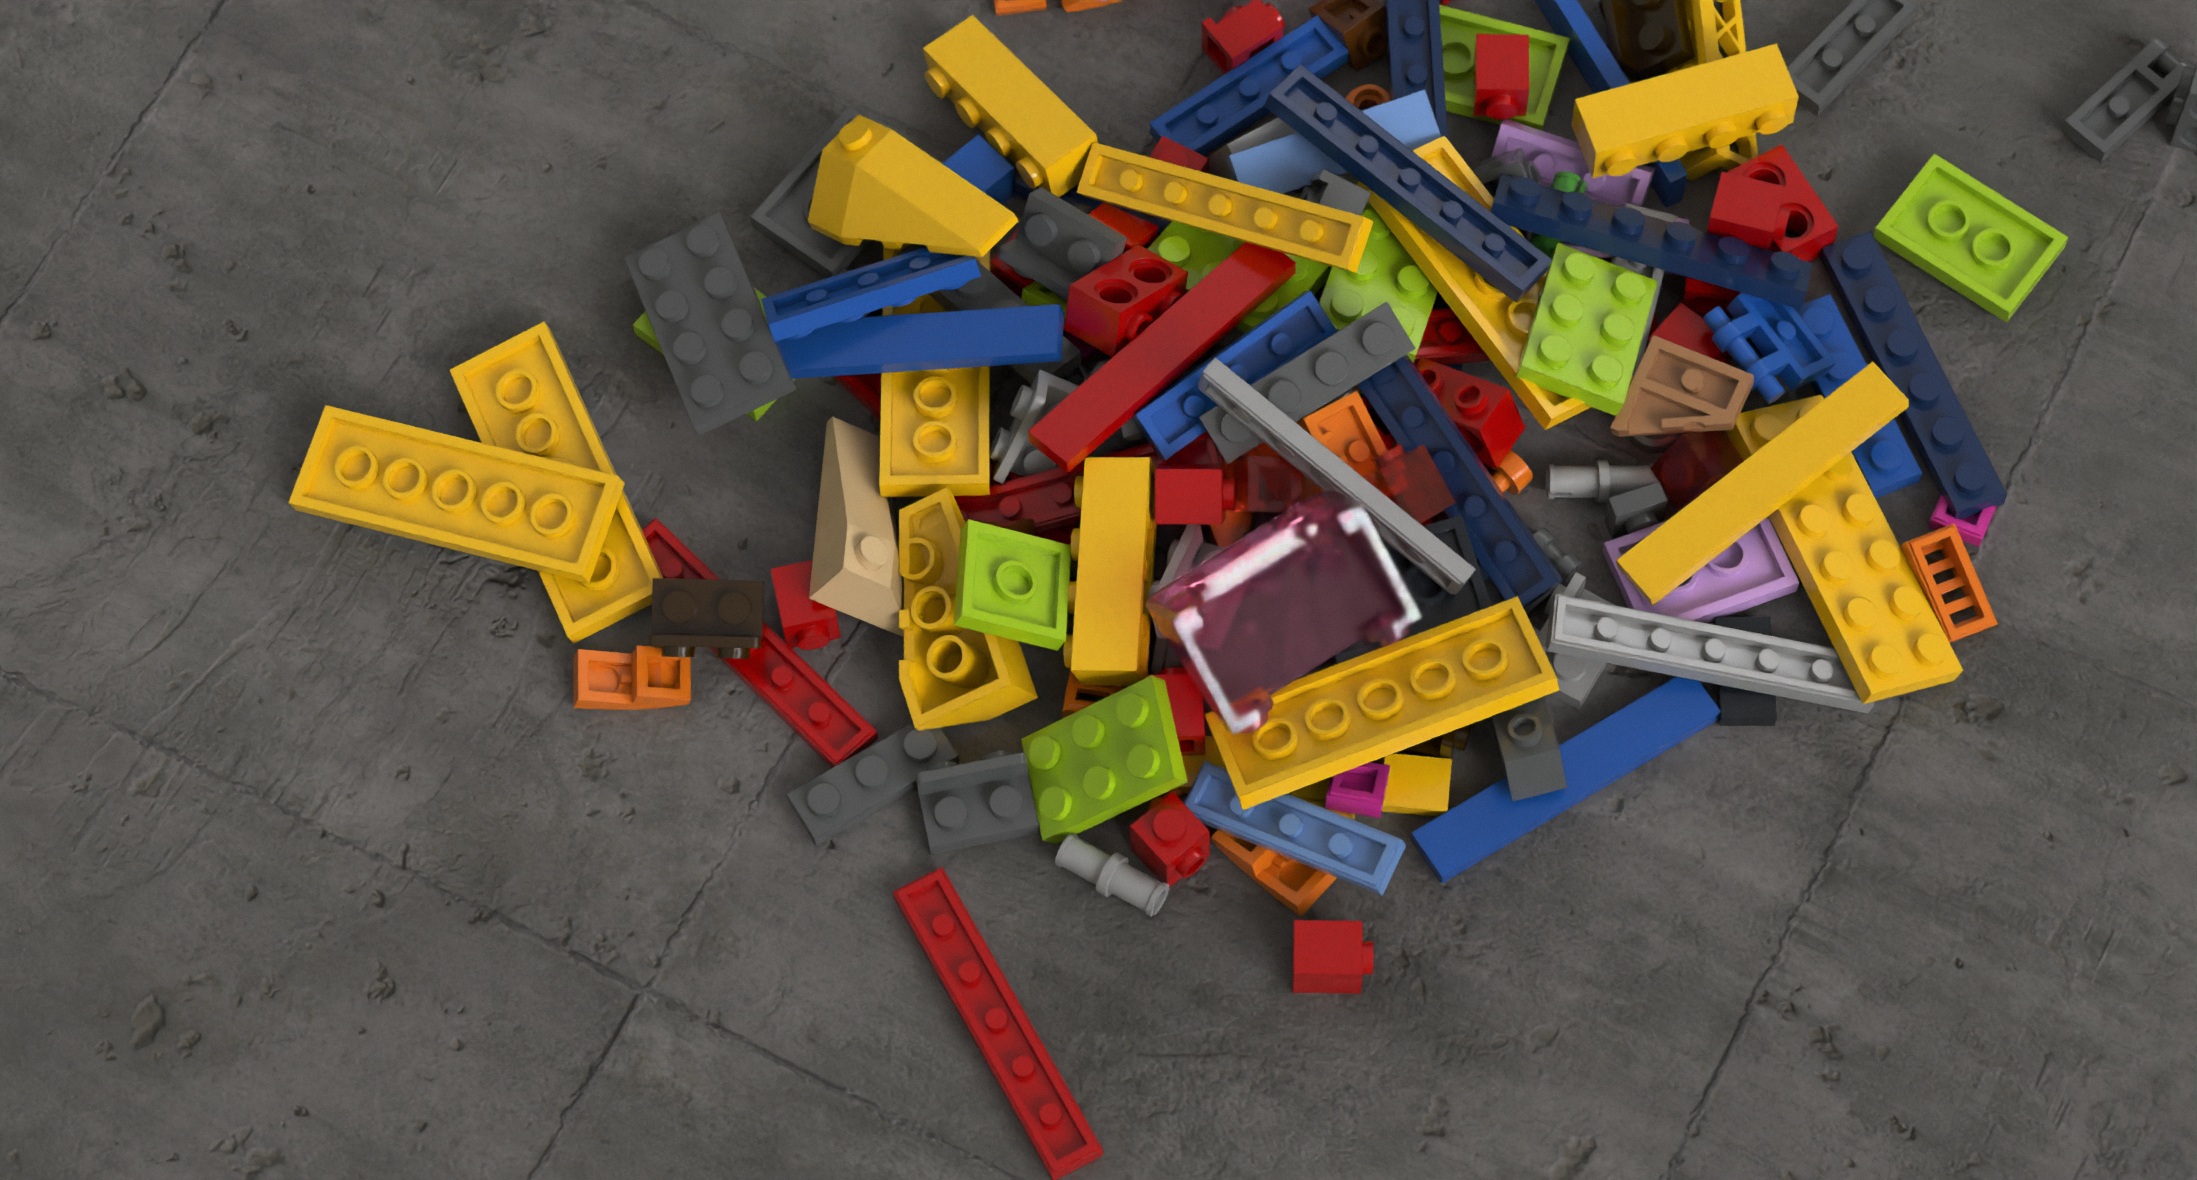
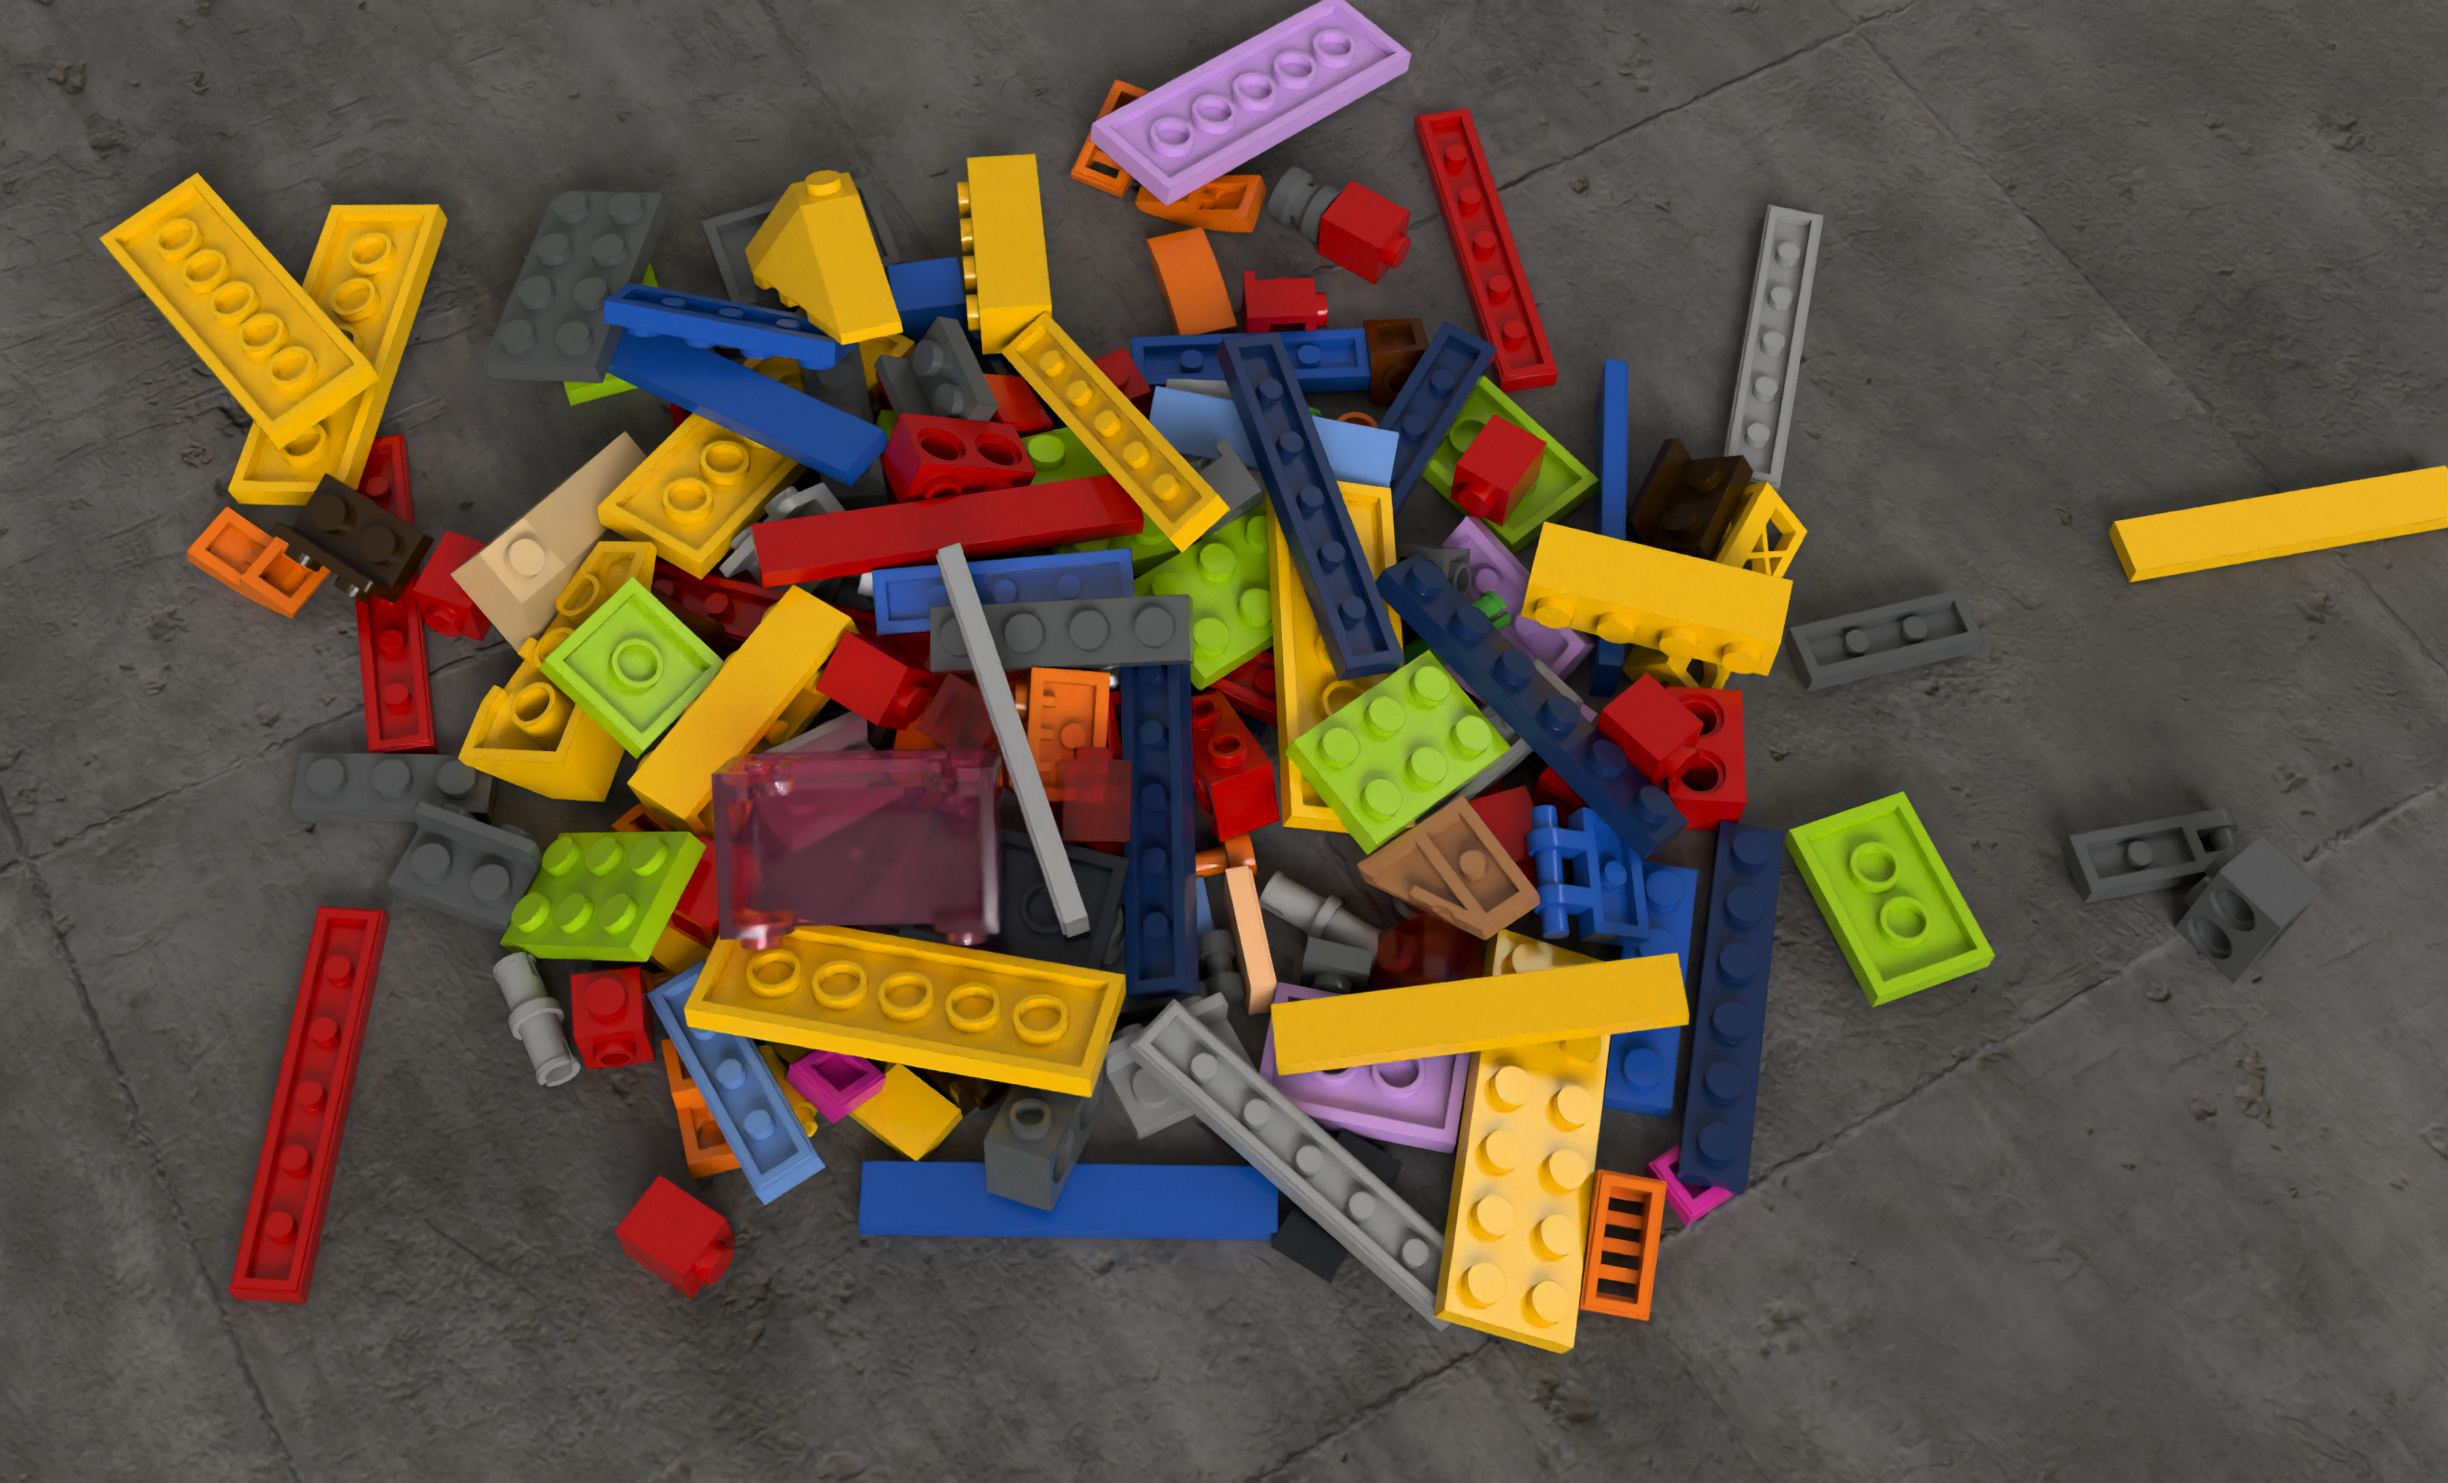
camera: 25 degrees right, 5 degrees down
(1159, 51) = (1191, 283): none -> orange slope
(1573, 534) = (1250, 939): none -> light nougat tile

